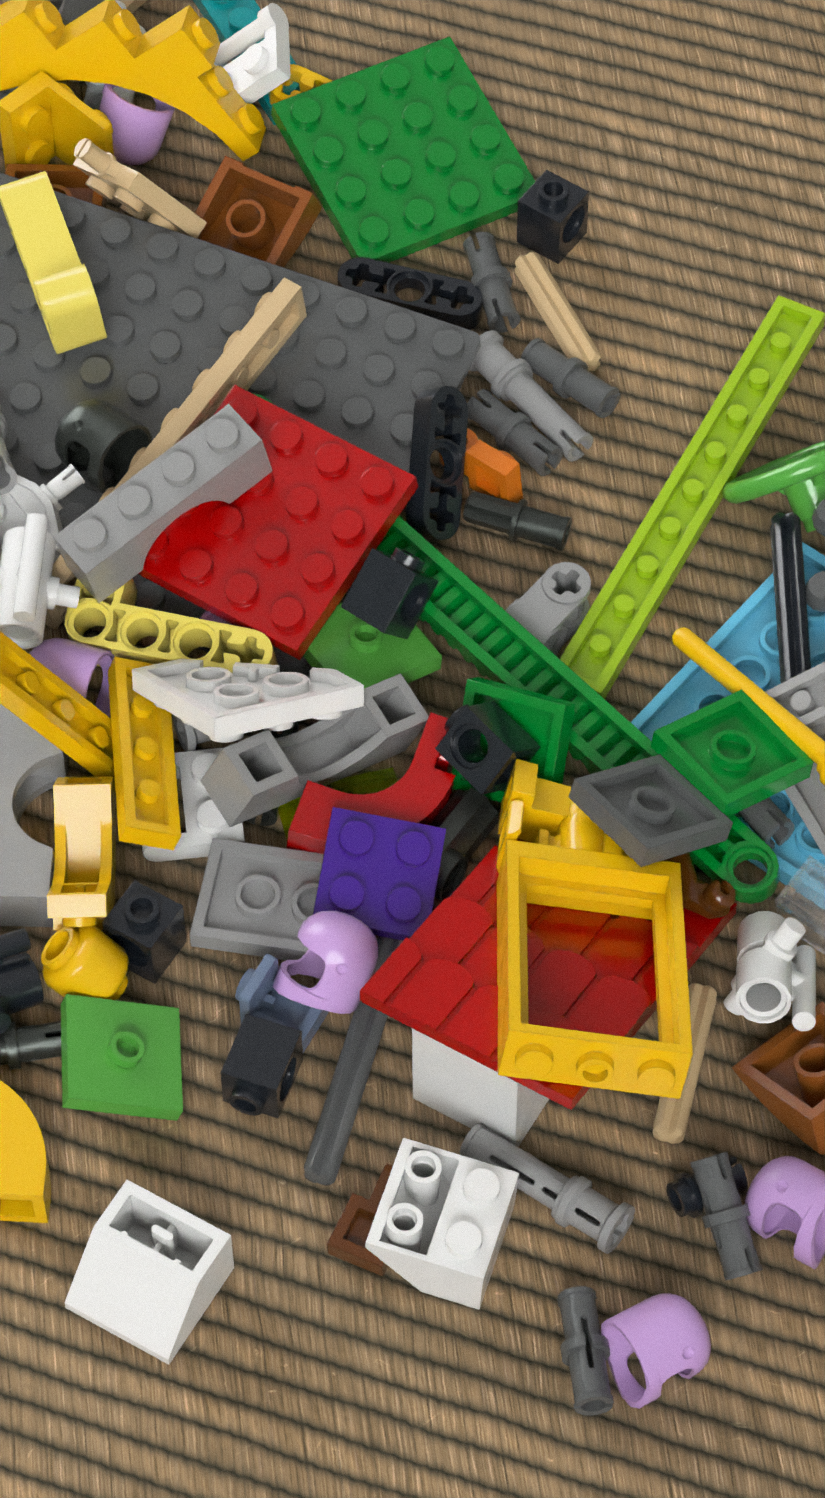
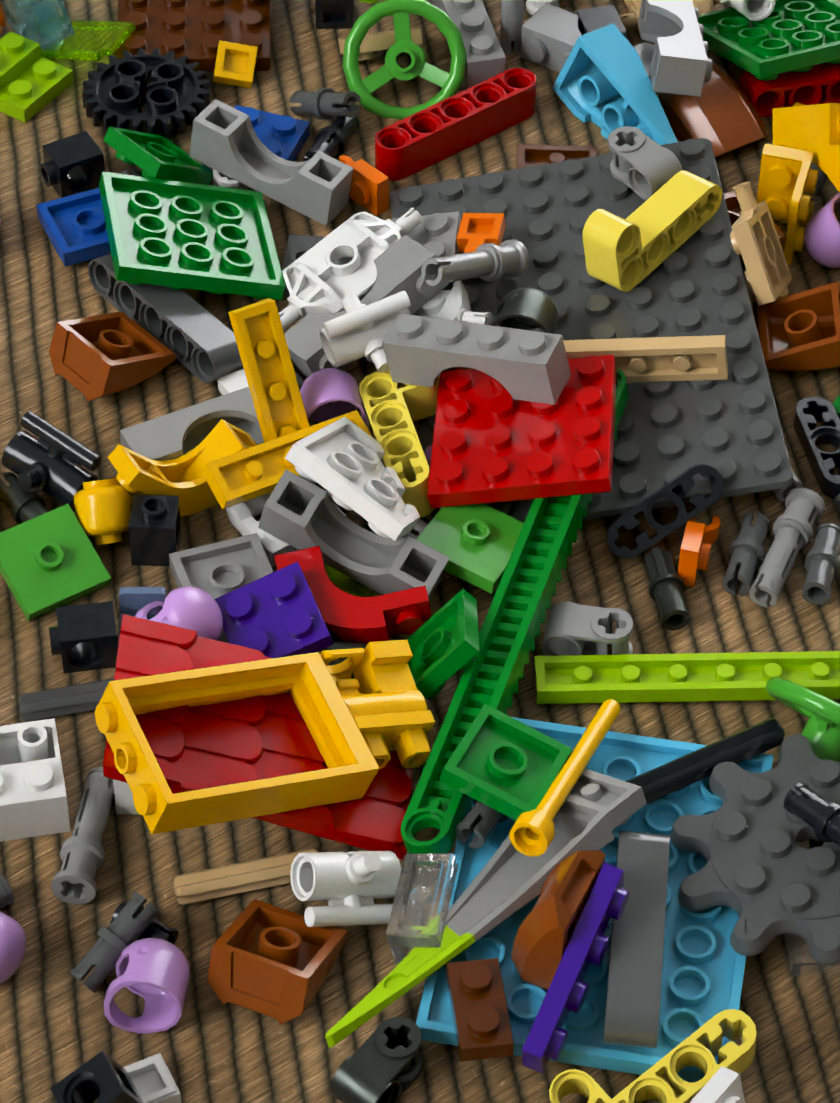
camera: 60 degrees right, 10 degrees down
(390, 592) = (504, 515): black brick -> none
(505, 744) = (420, 619): black brick -> none
(650, 810) = (409, 729): dark grey plate -> none
(703, 898) = (384, 806): reddish brown arm -> none

